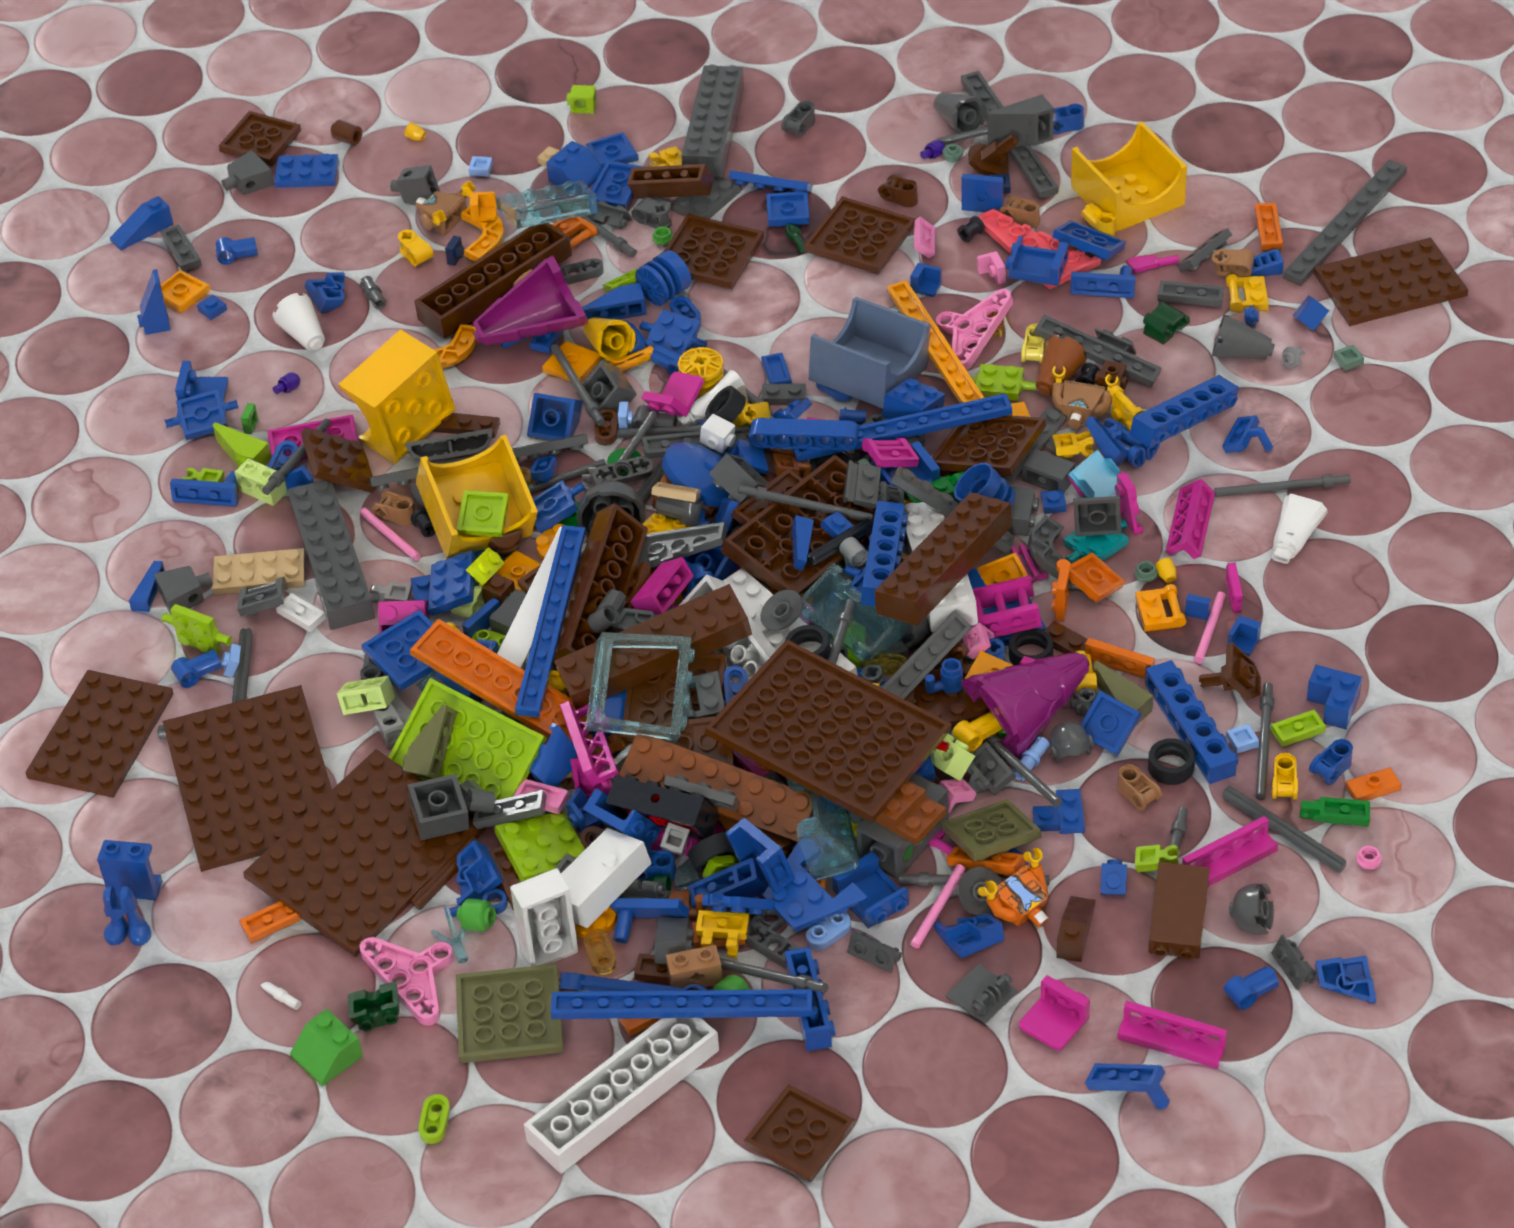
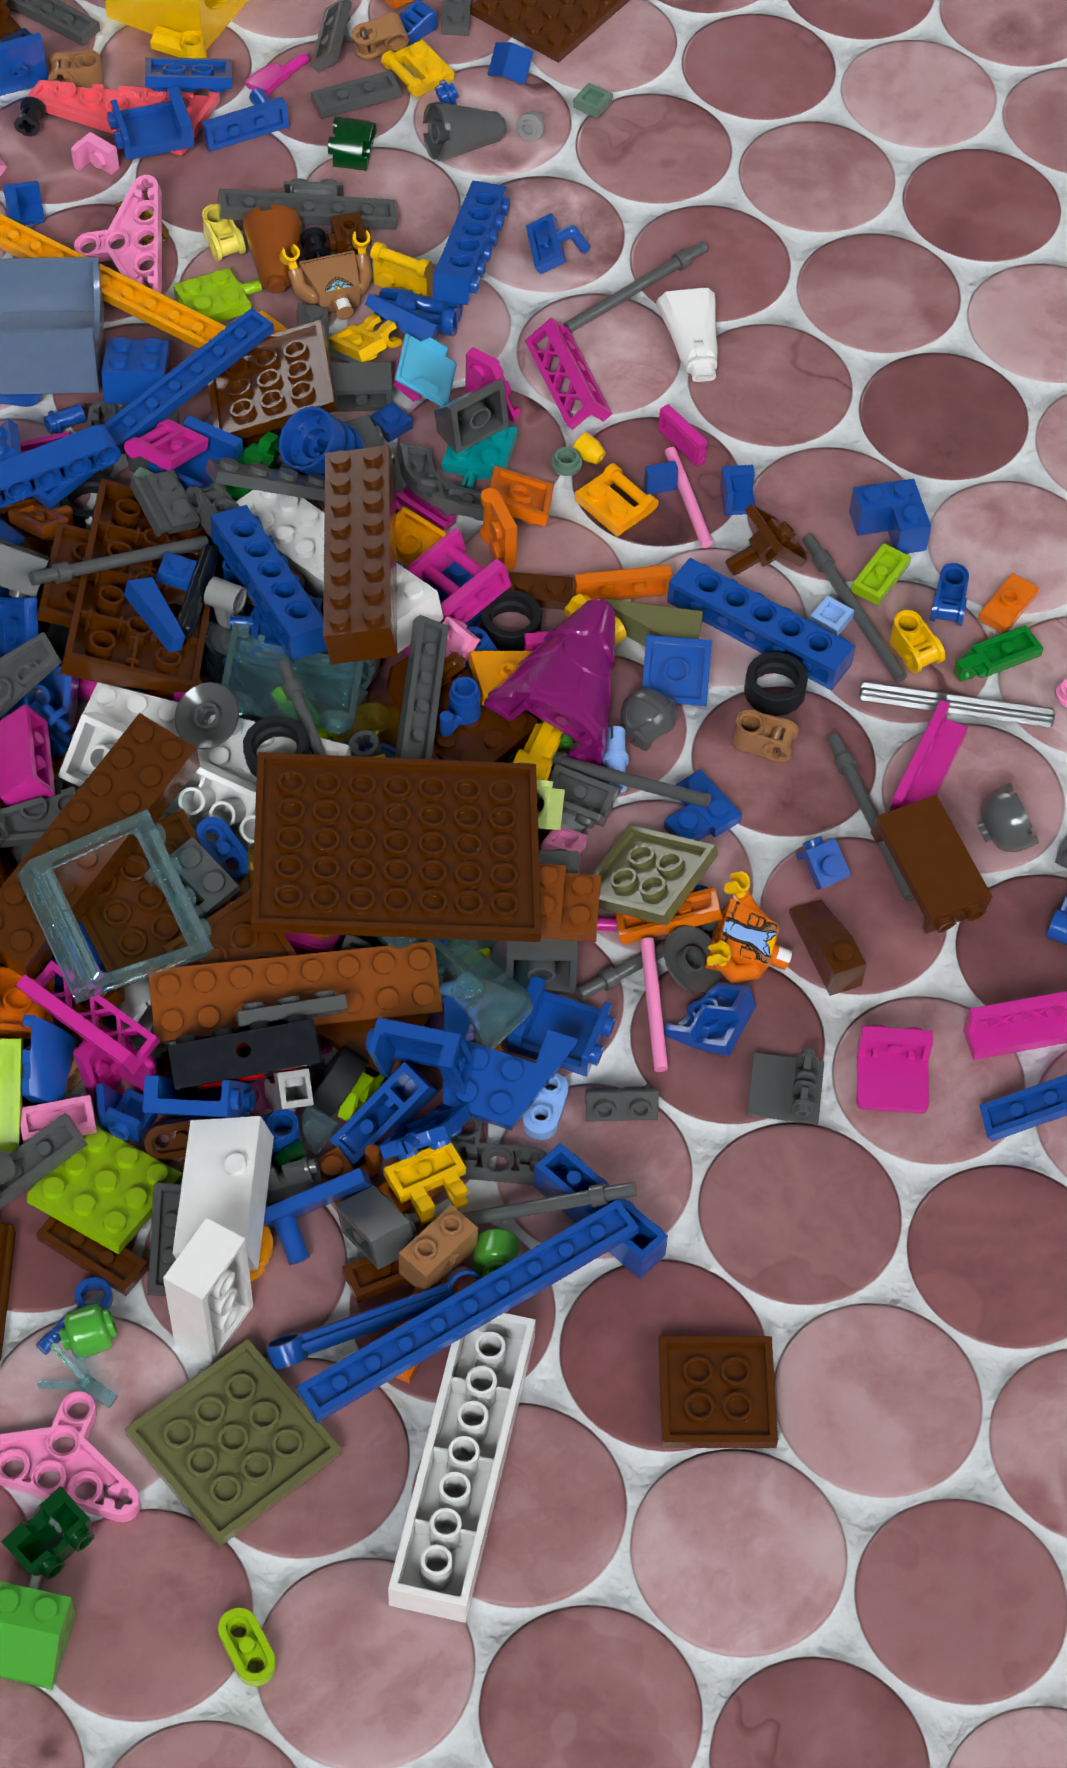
camera: 40 degrees left, 10 degrees up
(476, 872) = (44, 1272): blue slope -> none
(600, 954) = (289, 1293): clear yellow plate -> none
(1083, 700) = (628, 657): dark grey gear -> none
(1148, 857) = (849, 814): lime plate -> none

